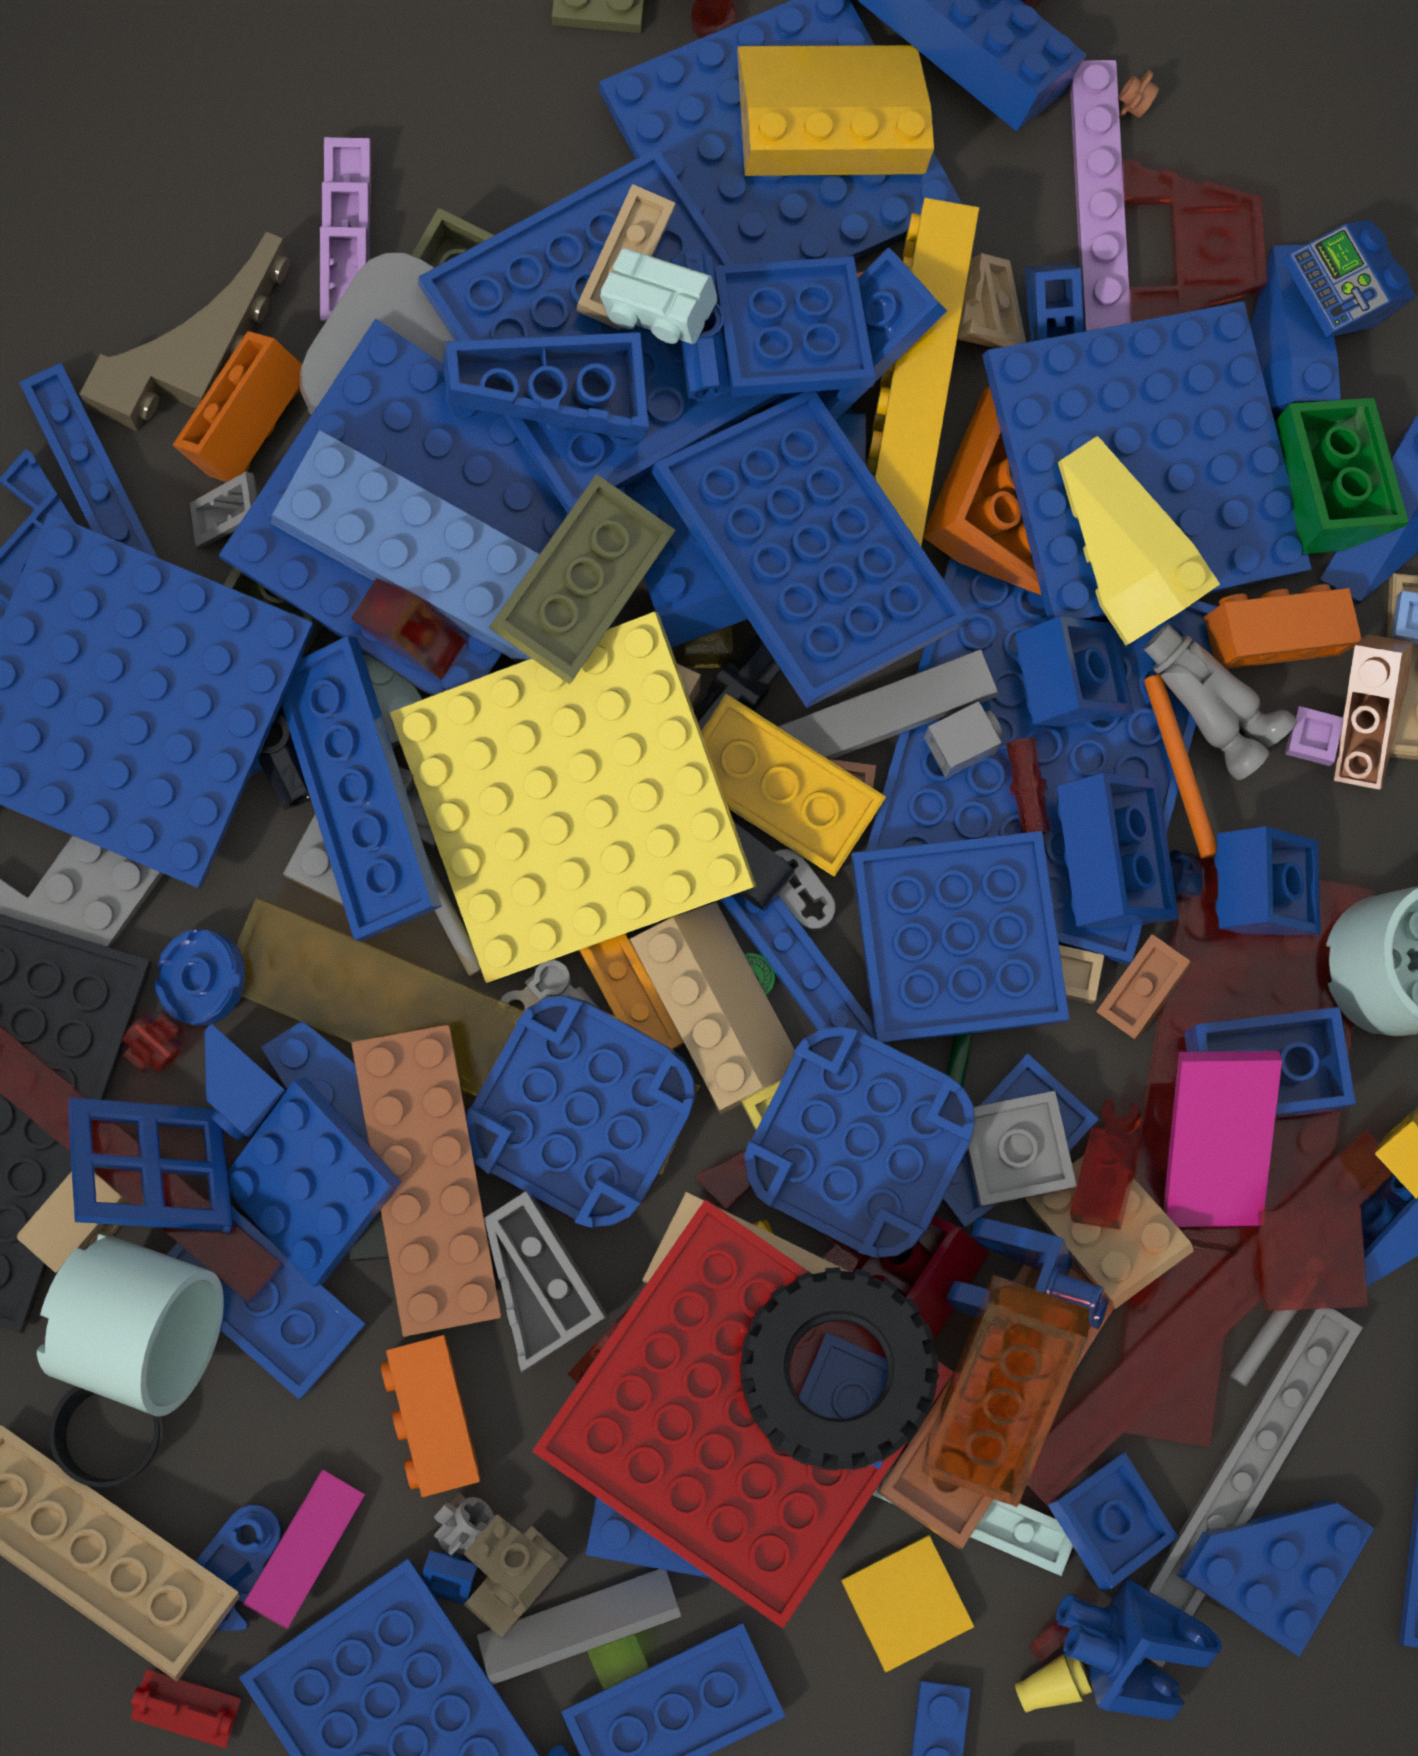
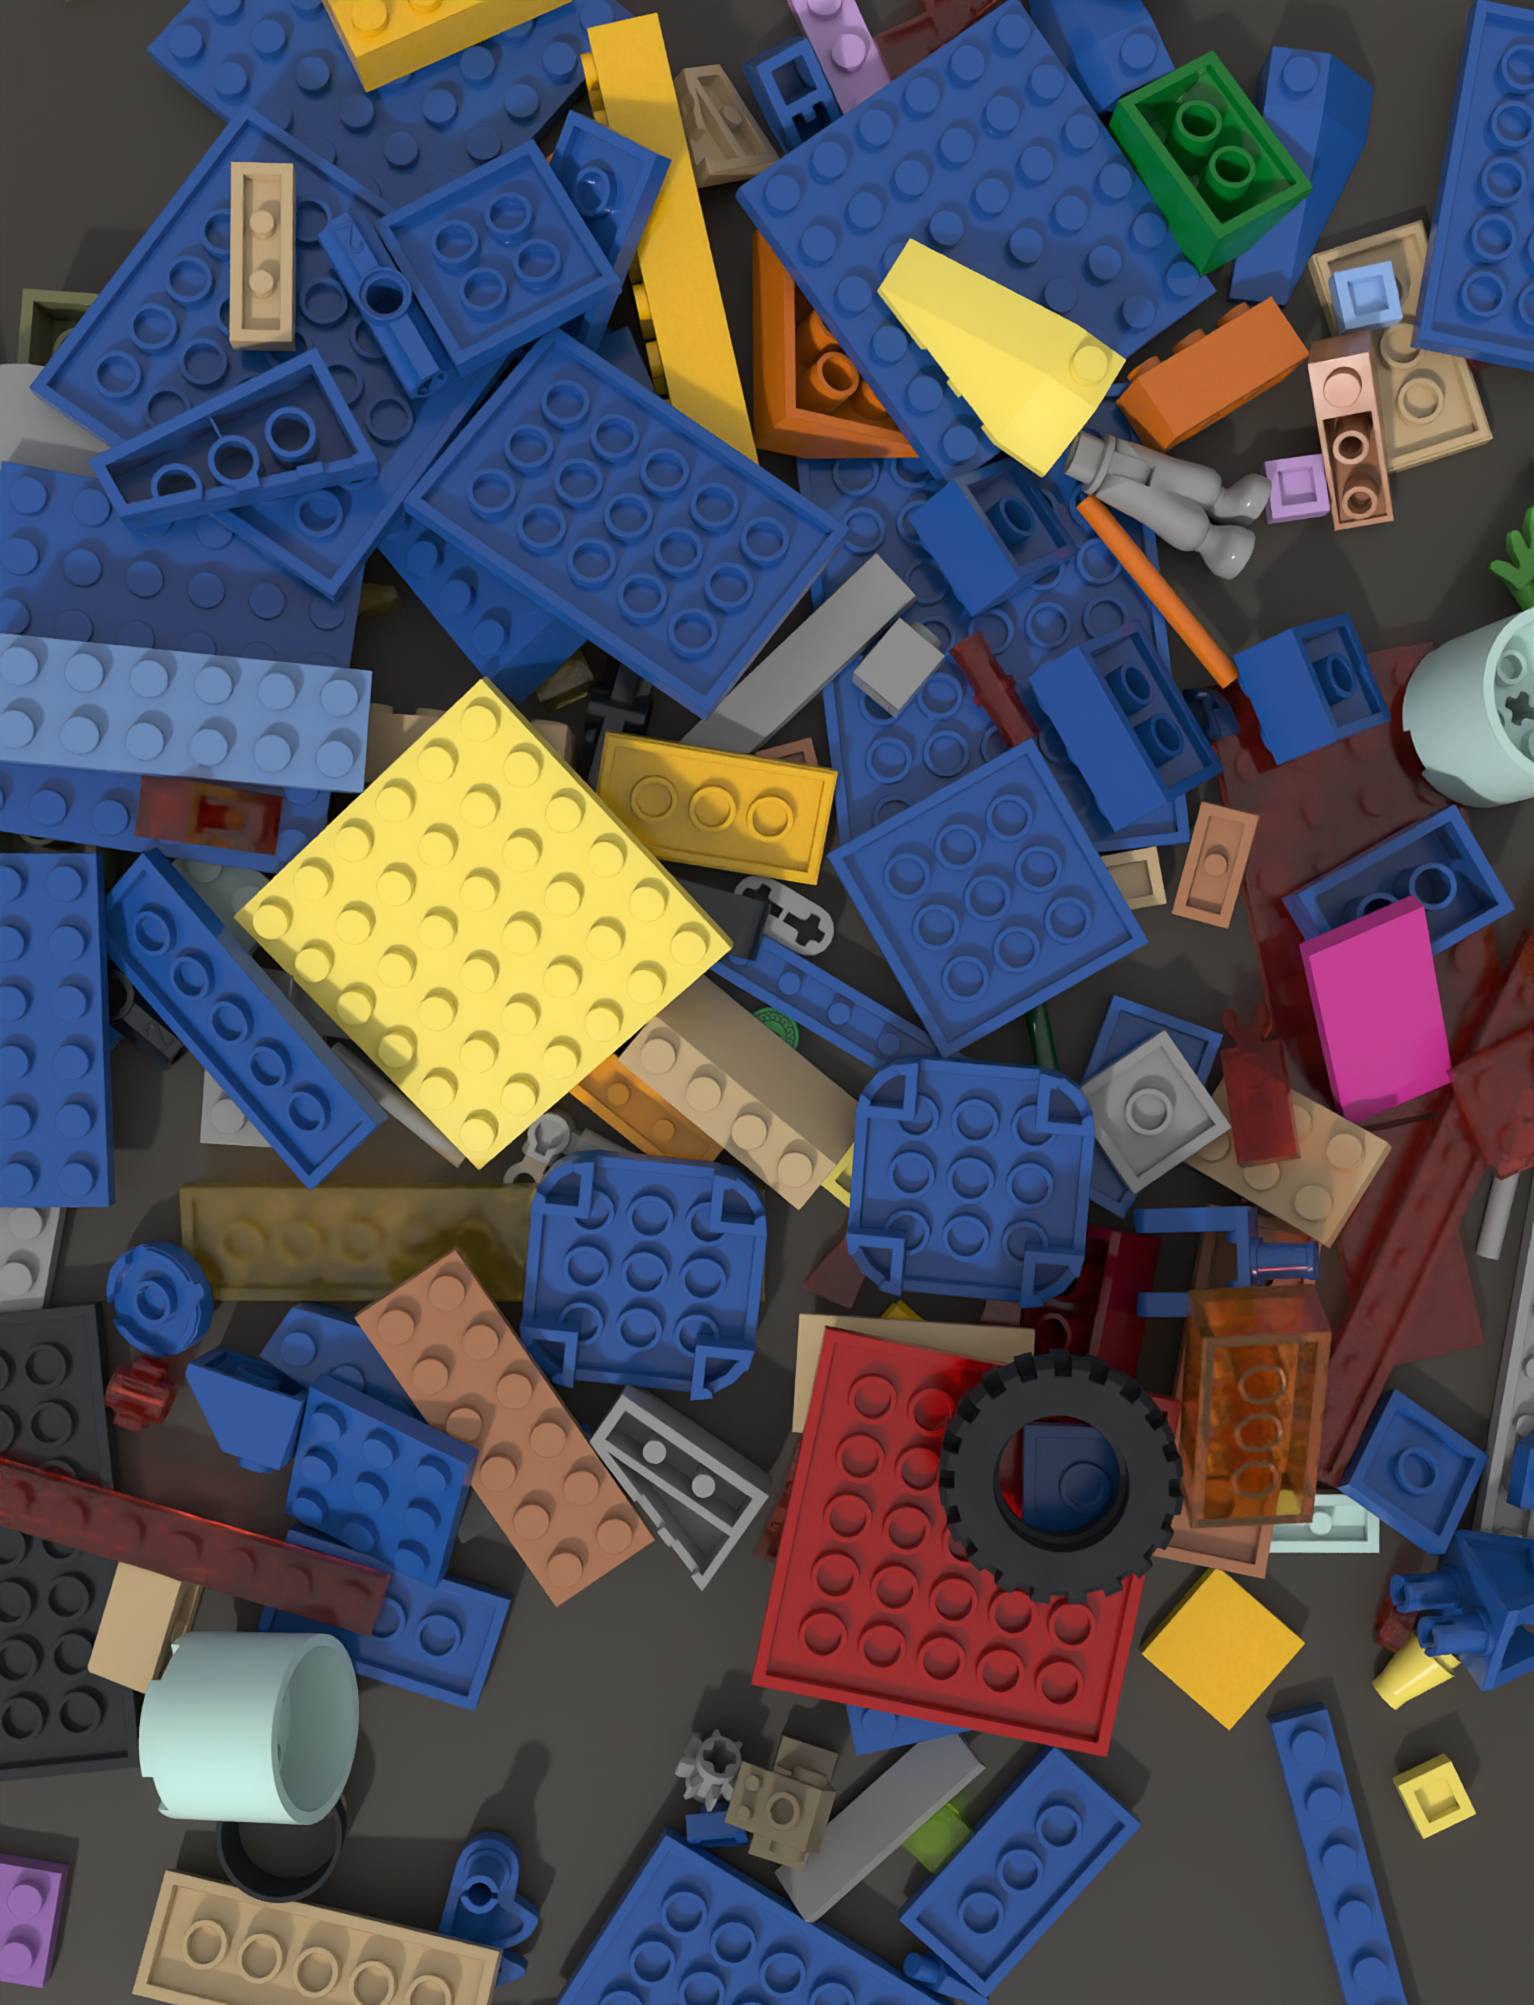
camera: 20 degrees left, 10 degrees up
(149, 1163) = (194, 1539): blue window -> none
(304, 1549) = (550, 1866): dark pink tile -> none
(431, 1416) = (627, 1669): orange brick -> none
(582, 579) = (379, 676): olive plate -> none
(658, 297) = (319, 292): light aqua brick -> none

